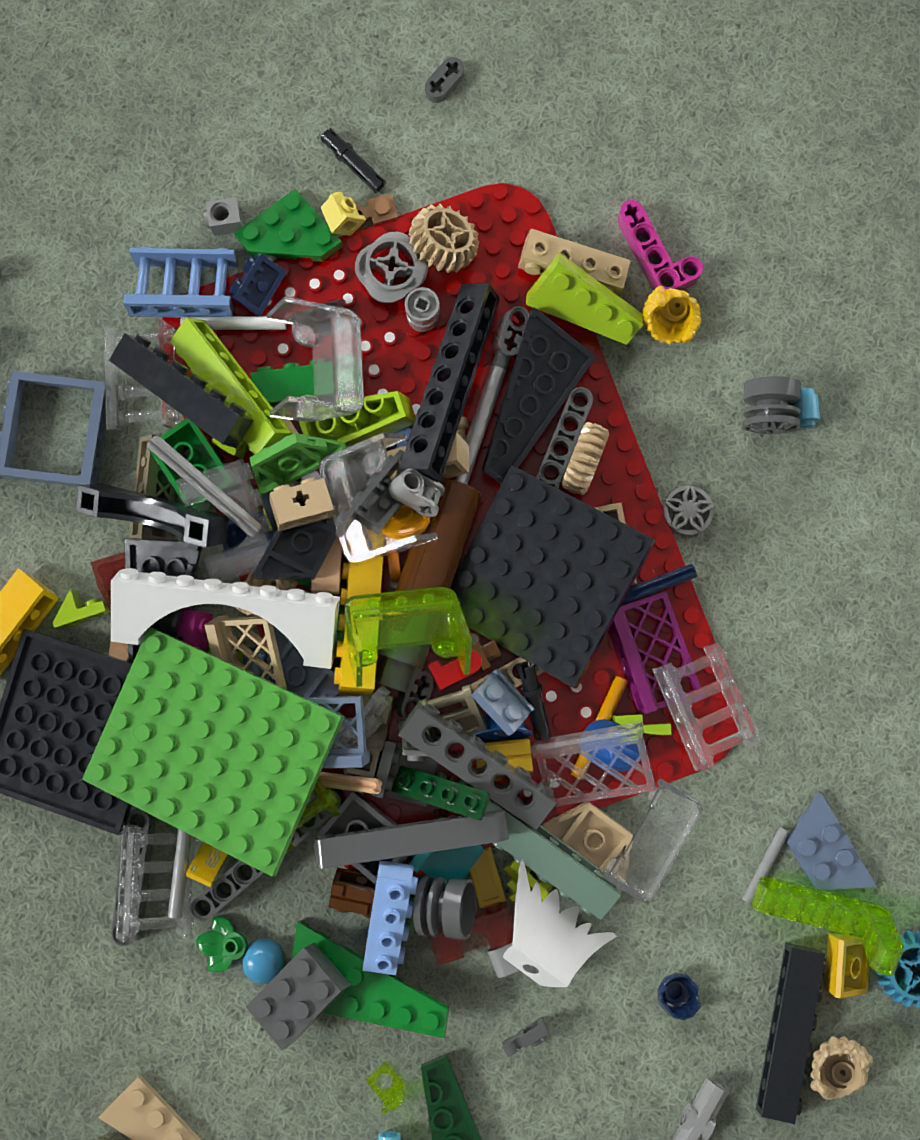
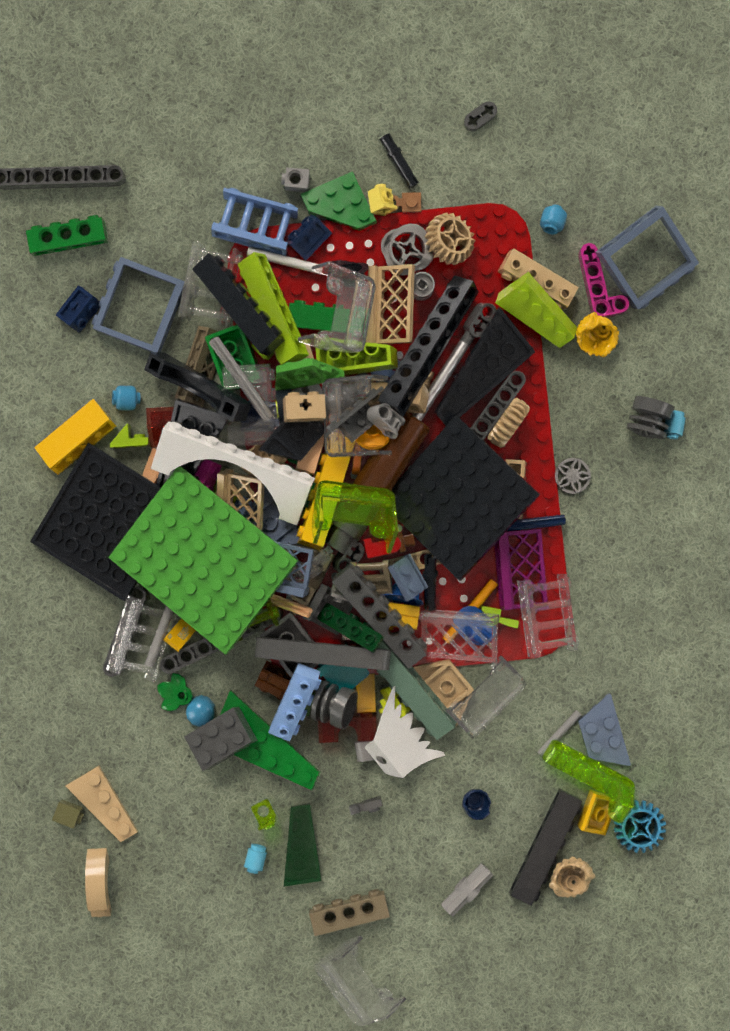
camera: 15 degrees right, 5 degrees up
(62, 556) = (125, 397): none -> dark azure head
(371, 348) = (377, 323): none -> tan fence
(573, 184) = (553, 219): none -> dark azure head
(680, 235) = (630, 233): none -> sand blue window

